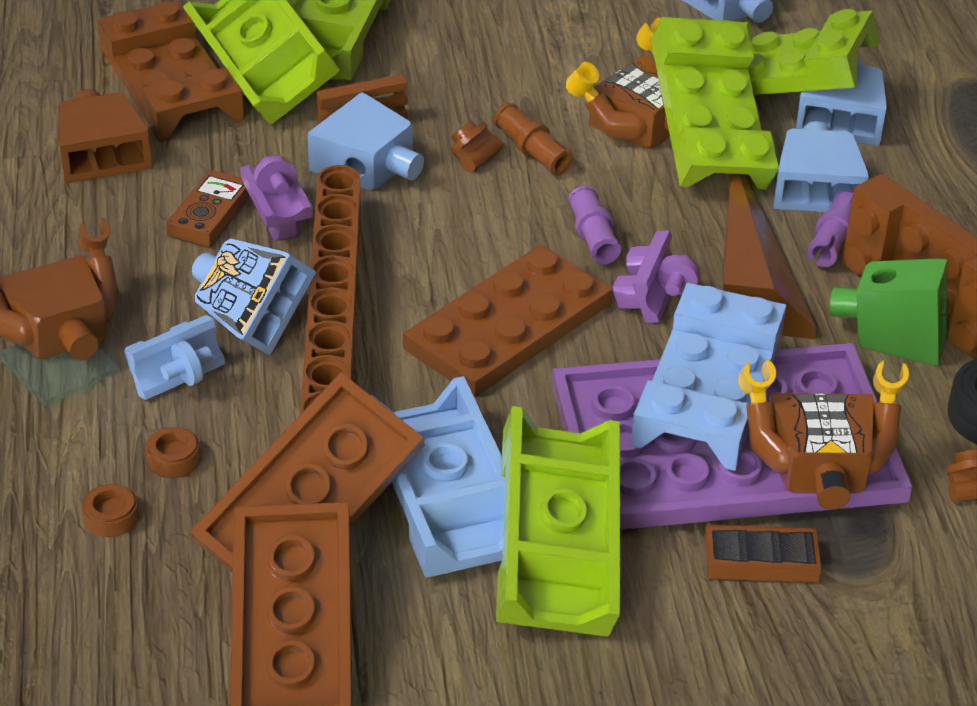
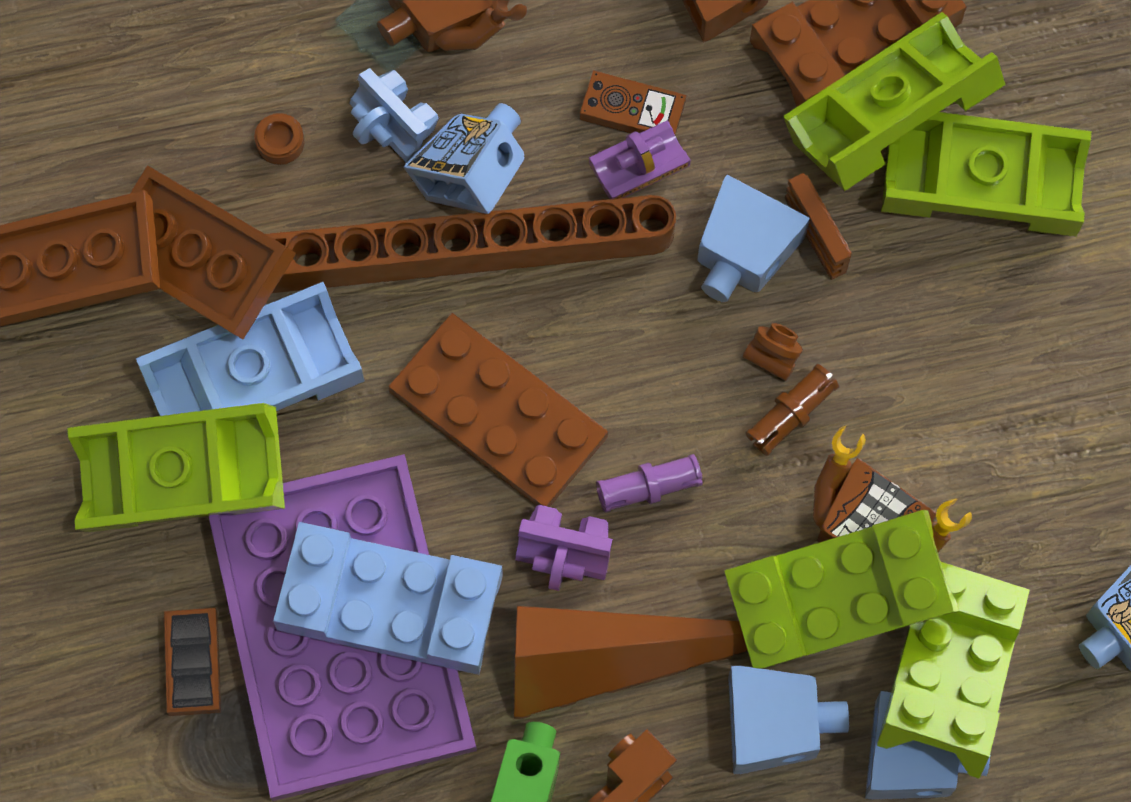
camera: 85 degrees right, 30 degrees up
(110, 510) = (202, 102): dark orange tile -> none
(823, 439) = (294, 701): dark orange torso -> none
(831, 231) = (680, 736): medium lavender pin -> none

